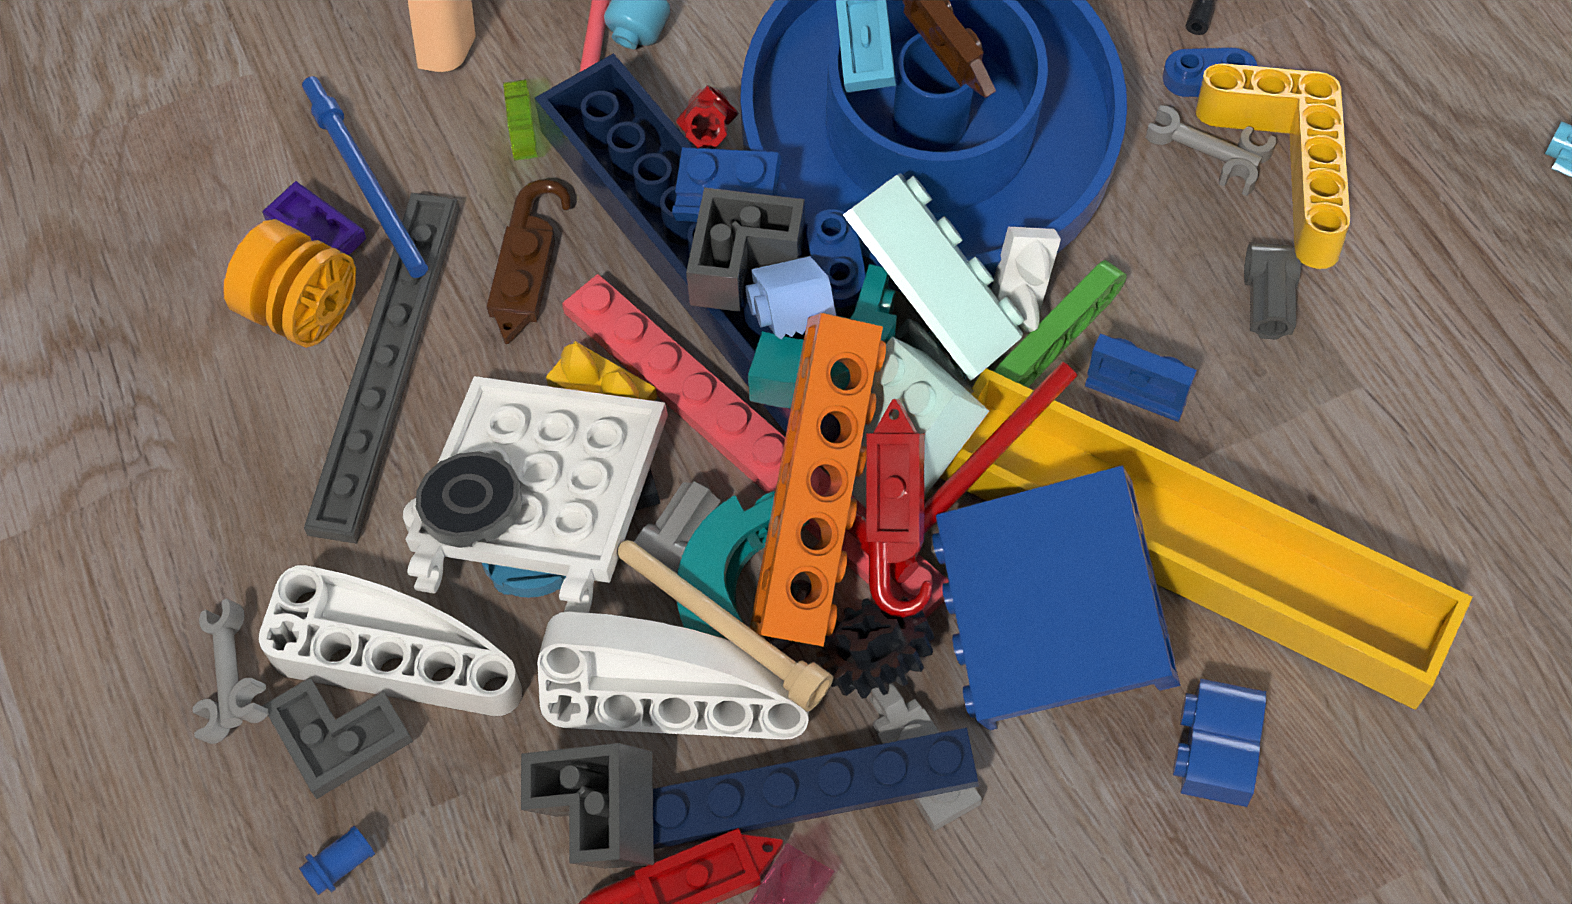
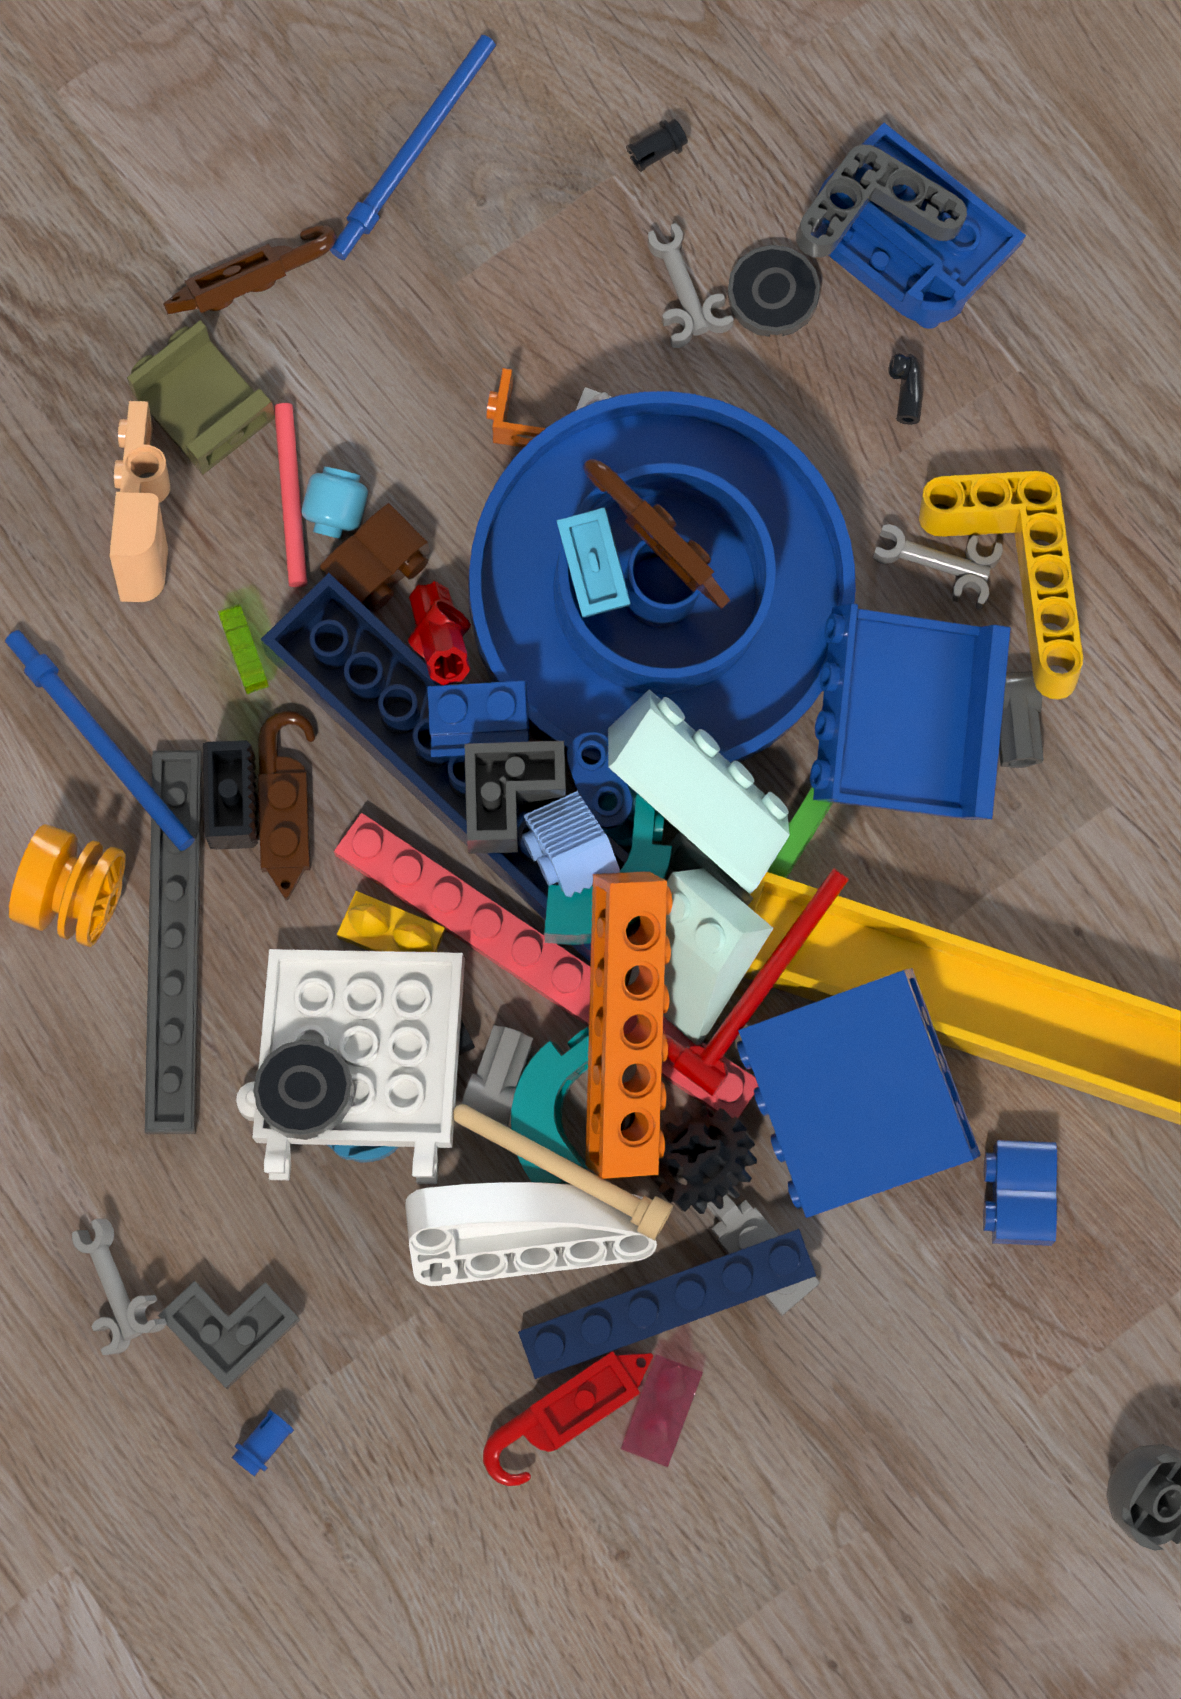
camera: 15 degrees left, 15 degrees up
(315, 218) = (64, 803): dark purple plate -> none
(377, 628) = (242, 1220): white beam -> none
(472, 233) = (229, 794): none -> black brick
(605, 796) = (494, 1349): dark grey brick -> none
(670, 60) = (378, 557): none -> reddish brown brick
(894, 506) = (702, 1038): red plate -> none
(1026, 270) = (781, 758): white tile -> none
(1140, 377) = (887, 838): blue plate -> none
(1163, 256) = (910, 714): none -> blue panel
(1186, 81) = (925, 464): blue plate -> none

